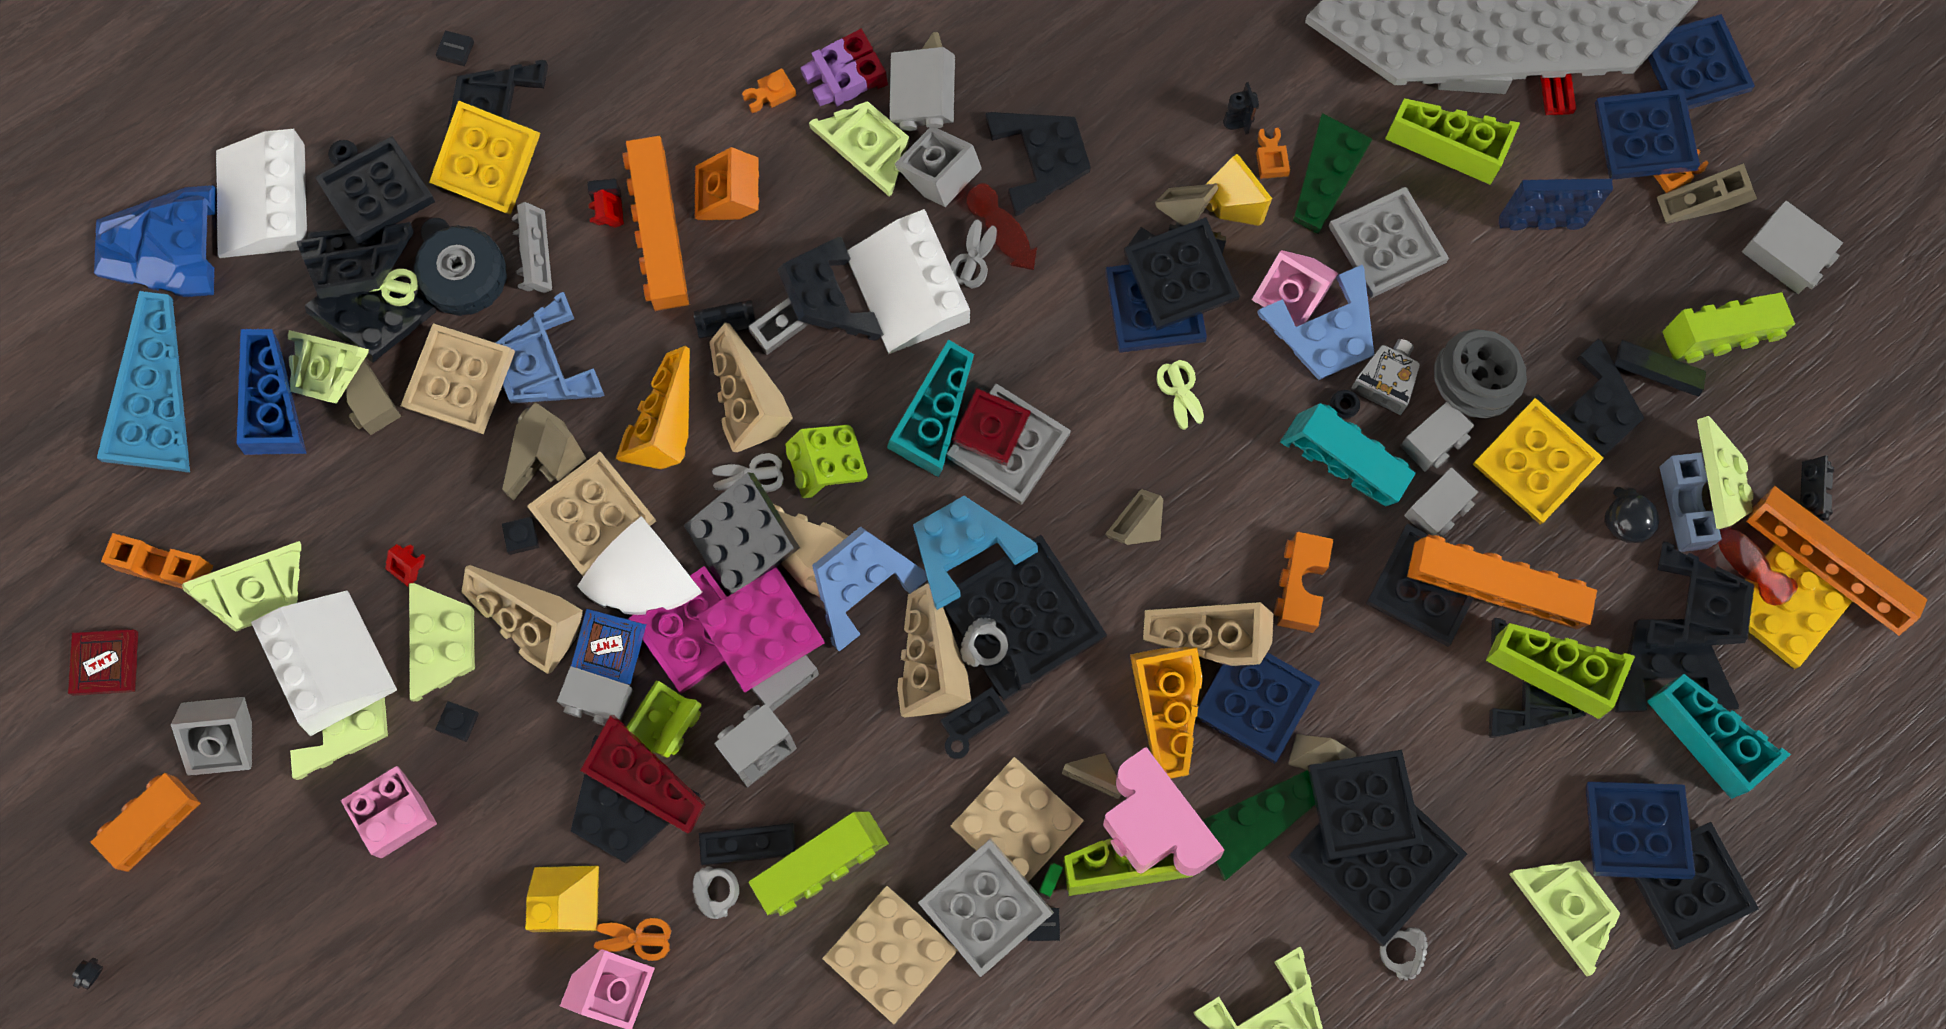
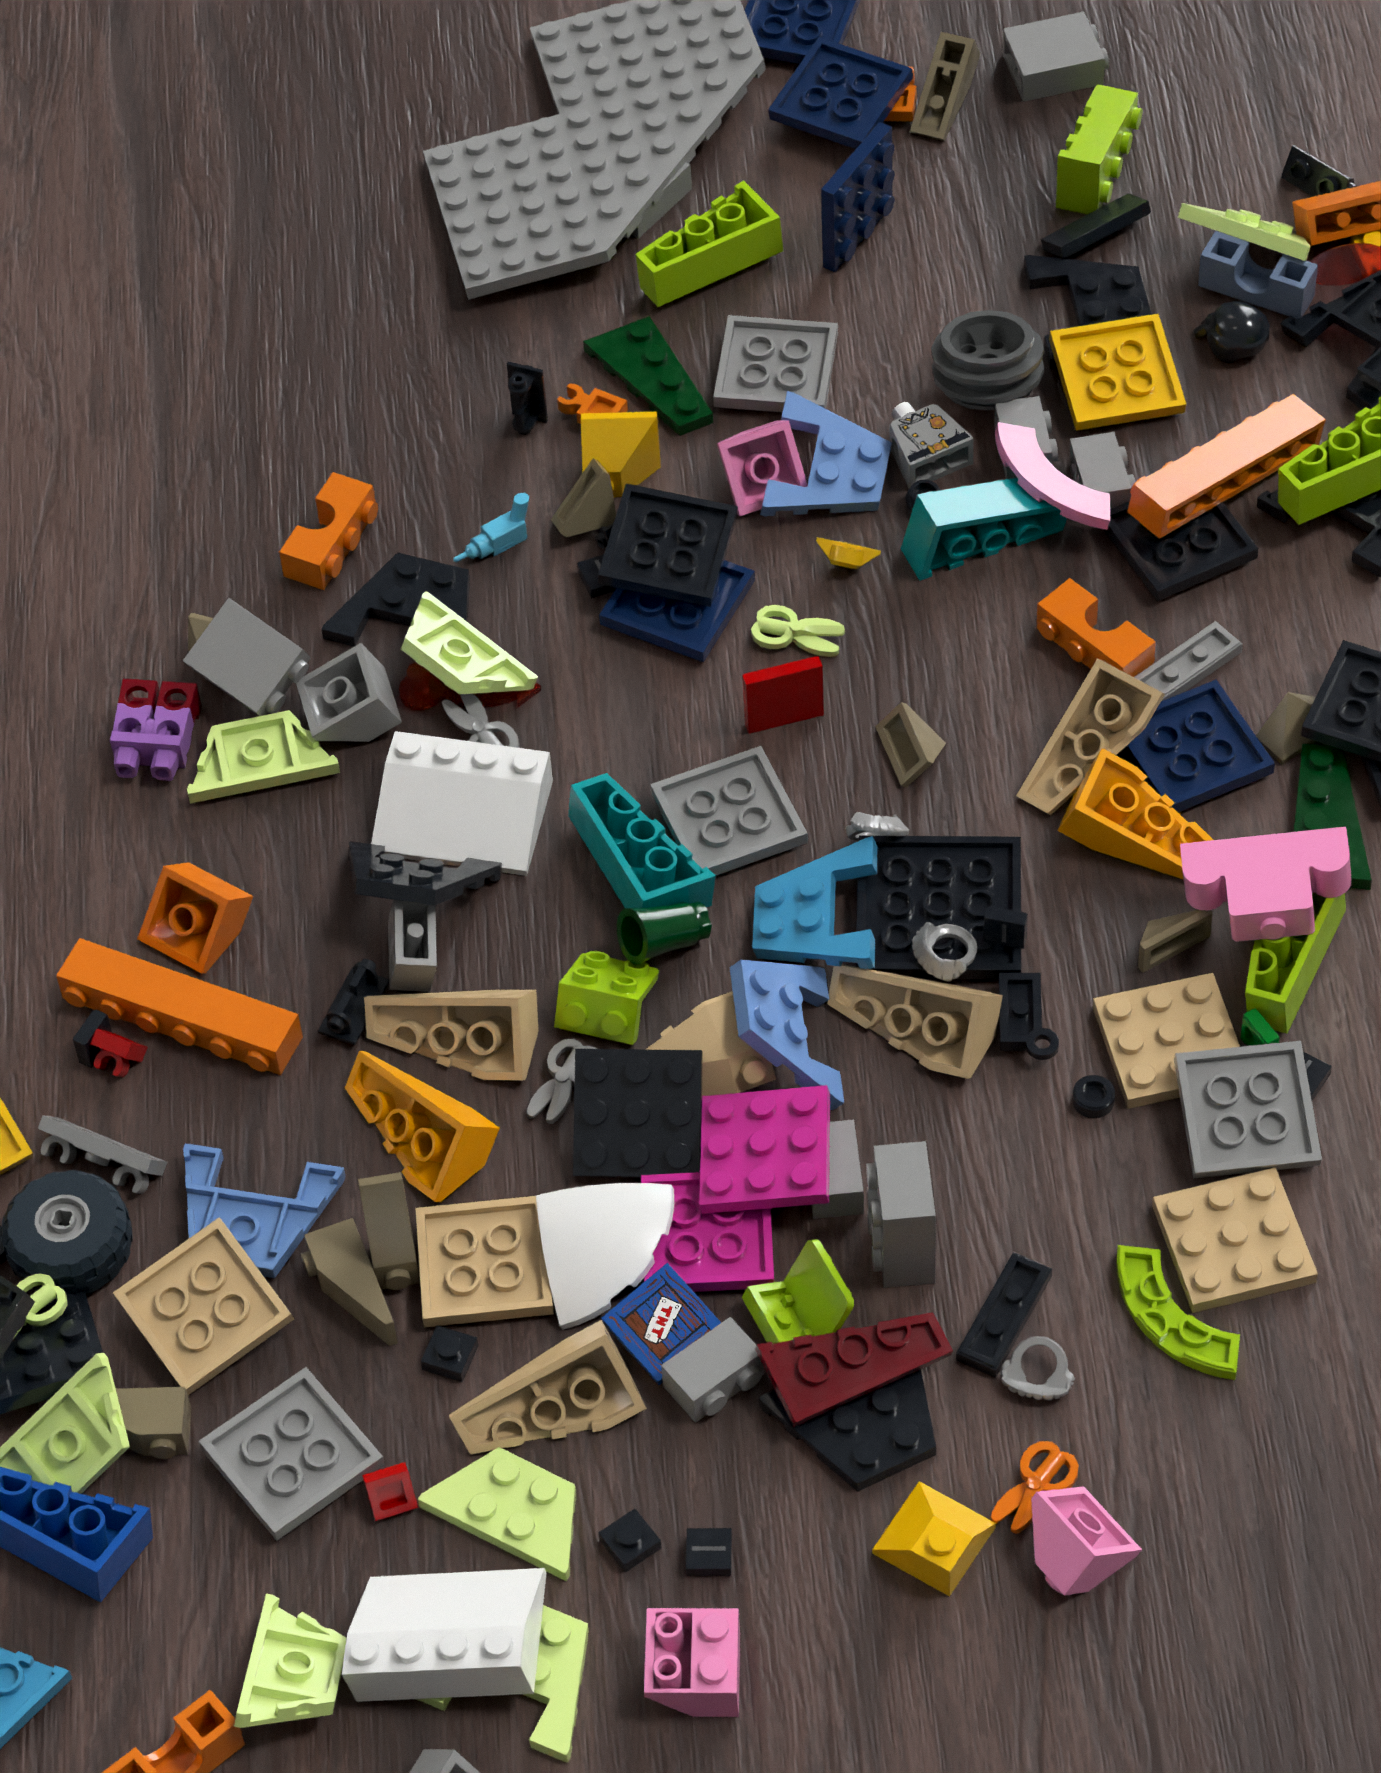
camera: 50 degrees left, 20 degrees down
(397, 492) = (291, 1453): none -> light grey plate
(475, 772) = (709, 1552): none -> black tile
(772, 89) = (109, 813): orange plate -> none
(804, 945) = (1165, 1323): none -> lime tile
(817, 862) = (1080, 1241): lime wedge -> none
(888, 463) = (661, 929): none -> dark green plant
(943, 801) = (1093, 1096): none -> black tile
(991, 427) = (700, 810): dark red tile -> none
(1013, 205) = (461, 653): none -> yellowish green wing
(1041, 74) = (318, 554): none -> orange arch
(1052, 544) = (870, 825): none -> light grey piece
(1113, 419) = (783, 694): none -> red tile
(1130, 165) = (500, 533): none -> medium azure piece
(1263, 384) = (846, 554): none -> yellow piece
(1324, 654) = (1192, 661): none -> light grey tile
(1398, 475) = (1044, 482): none -> tile
(1568, 92) = (737, 139): red tile -> none

